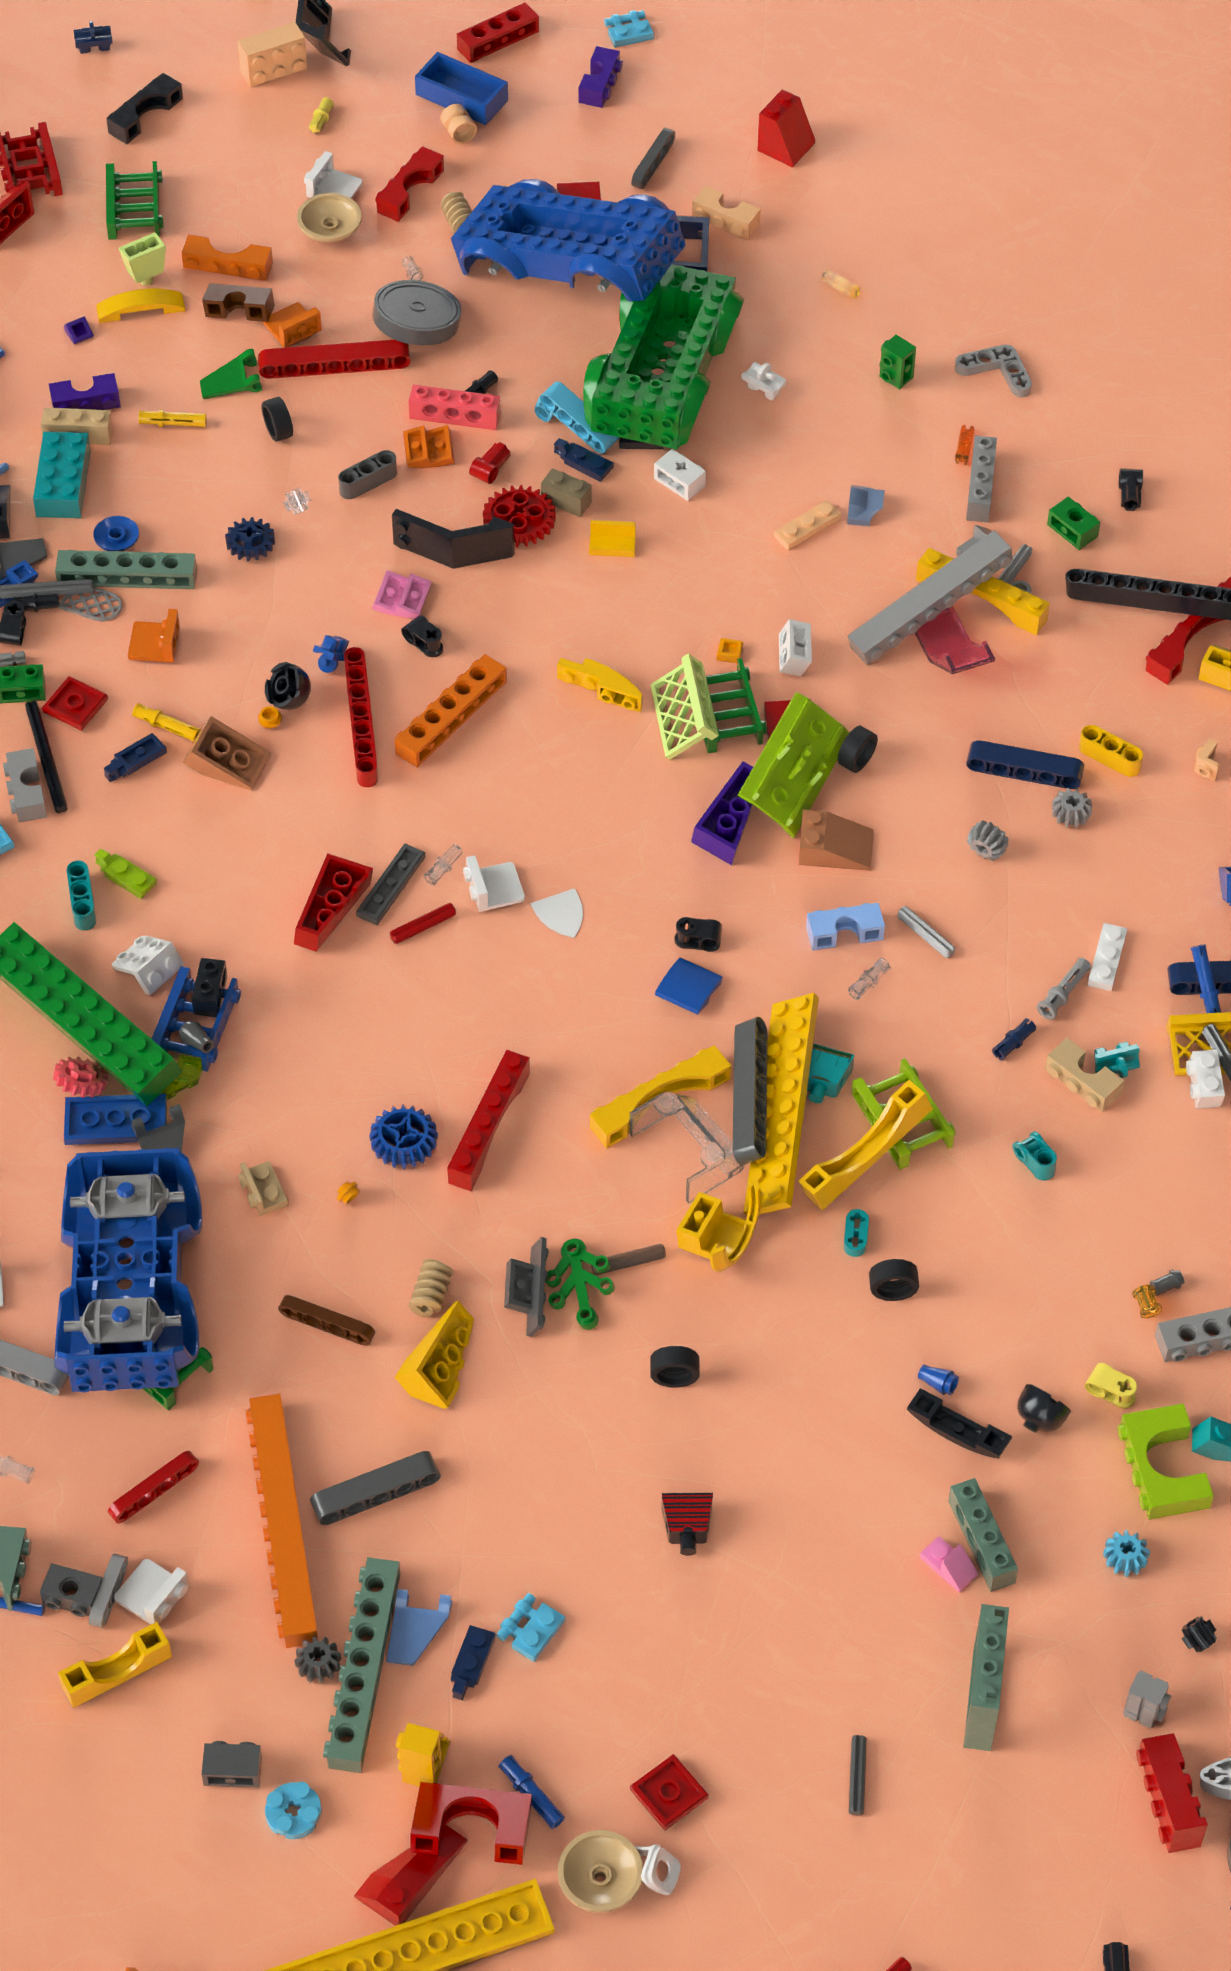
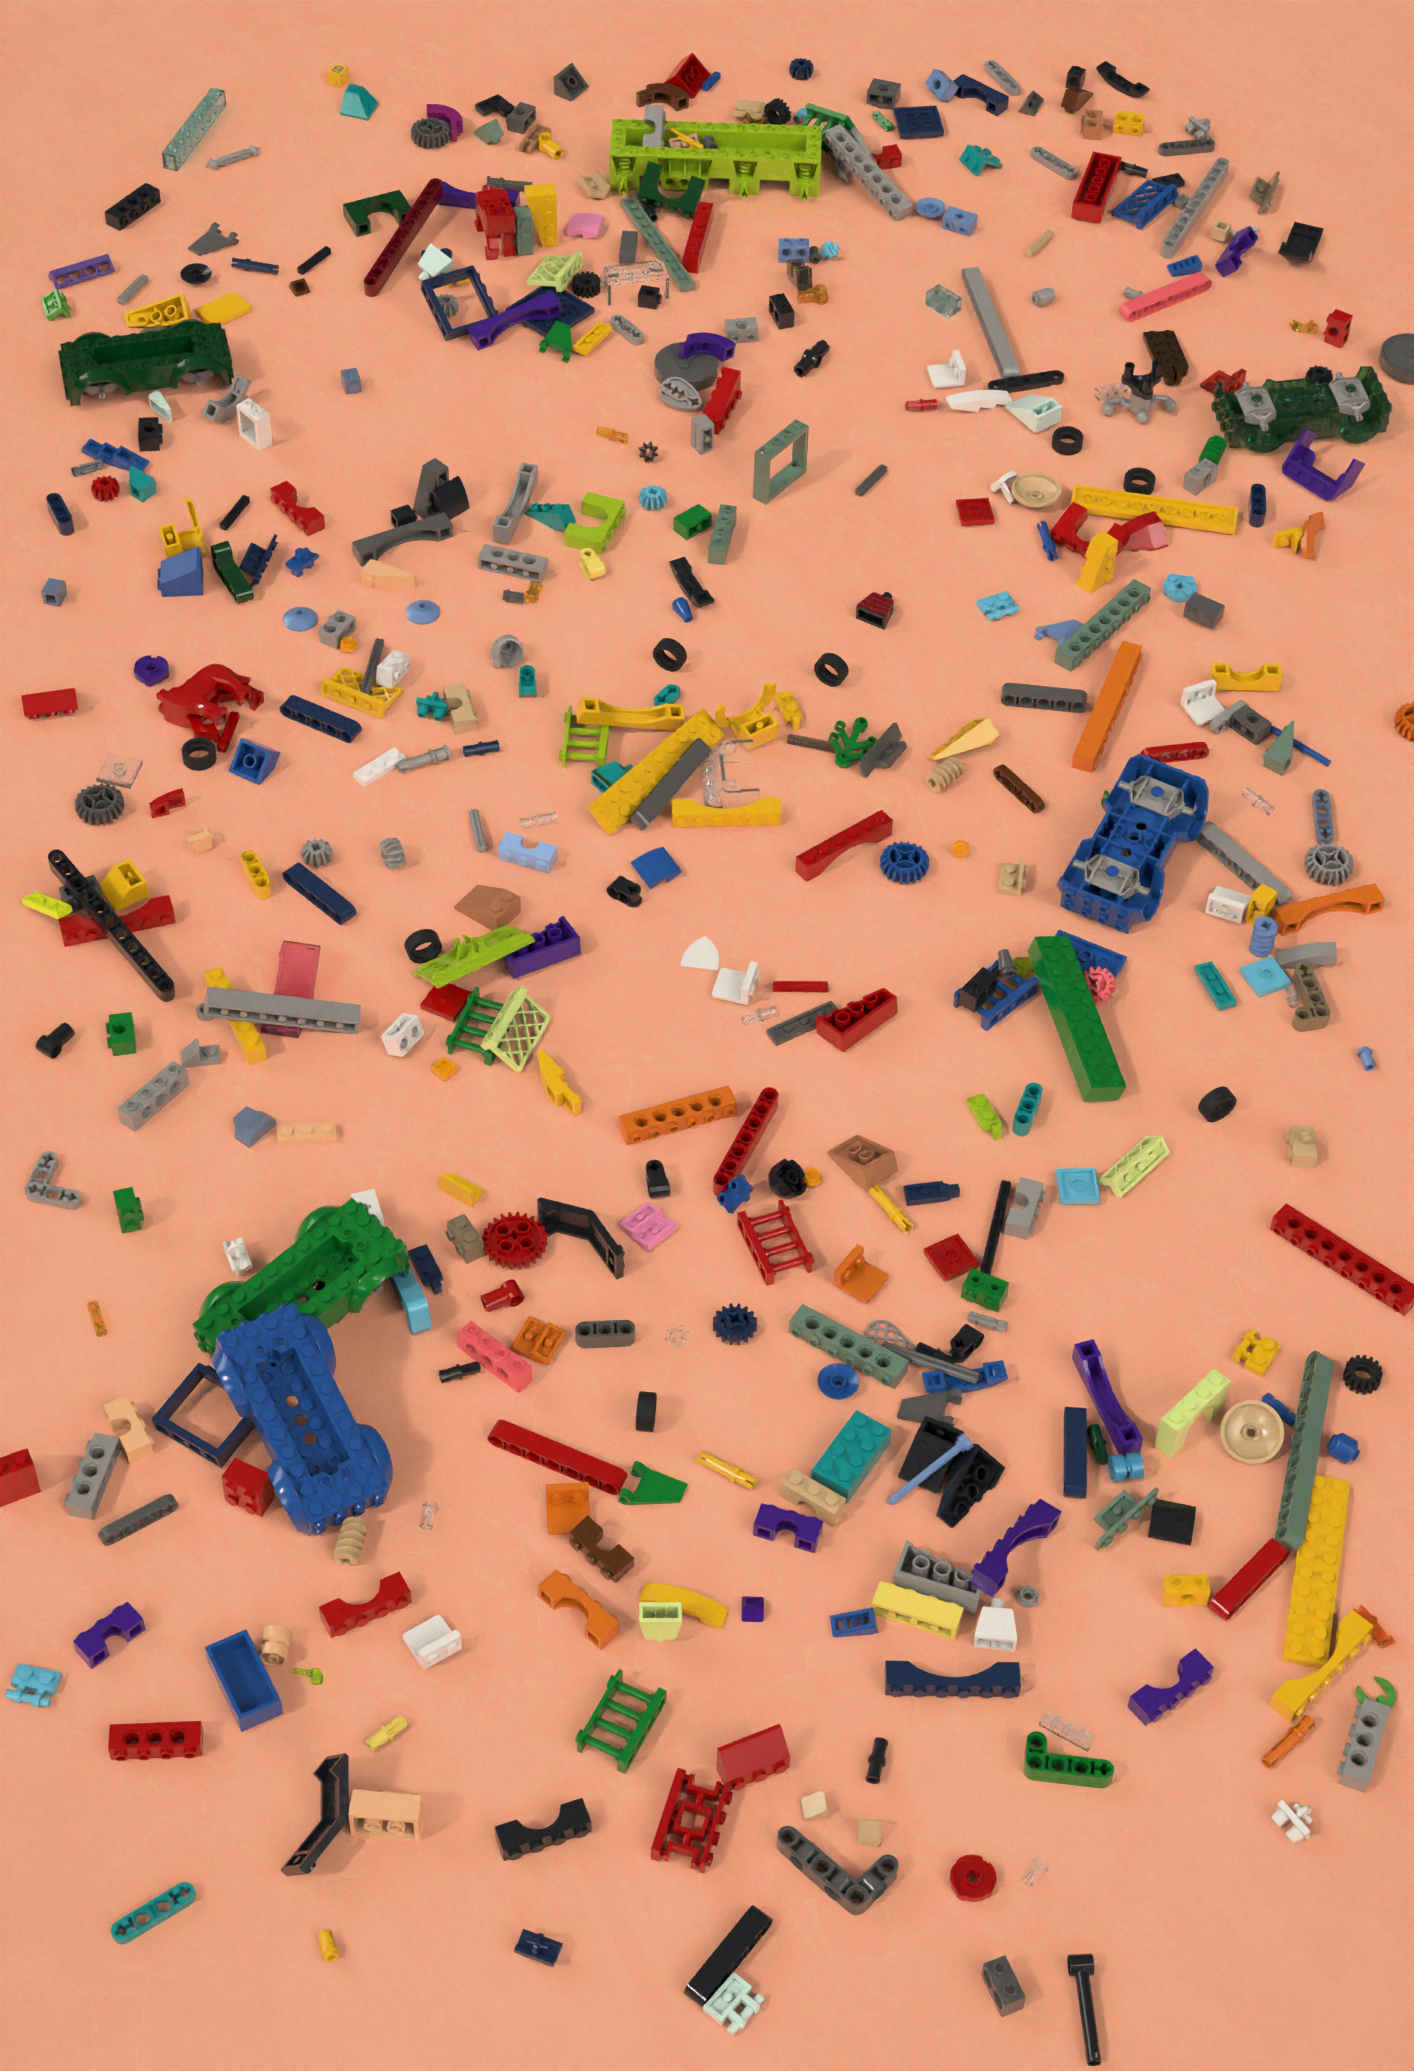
camera: 150 degrees left, 5 degrees down
(150, 962) = (1007, 1045): white bracket -> none
(162, 1137) = (1064, 923): dark grey flag -> none
(267, 613) = (761, 1255): none -> red fence
(318, 1669) = (1127, 633): dark grey gear -> none
(329, 217) = (463, 1584): tan dish -> none
(412, 128) = (315, 1675): none -> clear neon green hand
(416, 312) = (461, 1456): dark grey brick -> none
(471, 1660) = (1041, 606): dark blue hinge -> none
(693, 1297) = (789, 709): none -> yellow hinge
(721, 168) = (86, 1505): none -> light grey brick
(950, 1563) = (749, 537): bright pink slope -> none
(964, 445) = (136, 1136): clear orange piece -> none
(1016, 565) = (194, 1028): light grey axle -> none
(1040, 1538) = (692, 522): none -> green brick
(1041, 1410) = (640, 567): black cylinder -> none
(1099, 1184) = (507, 651): none -> light grey piece
(1206, 981) = (342, 709): blue pin -> none

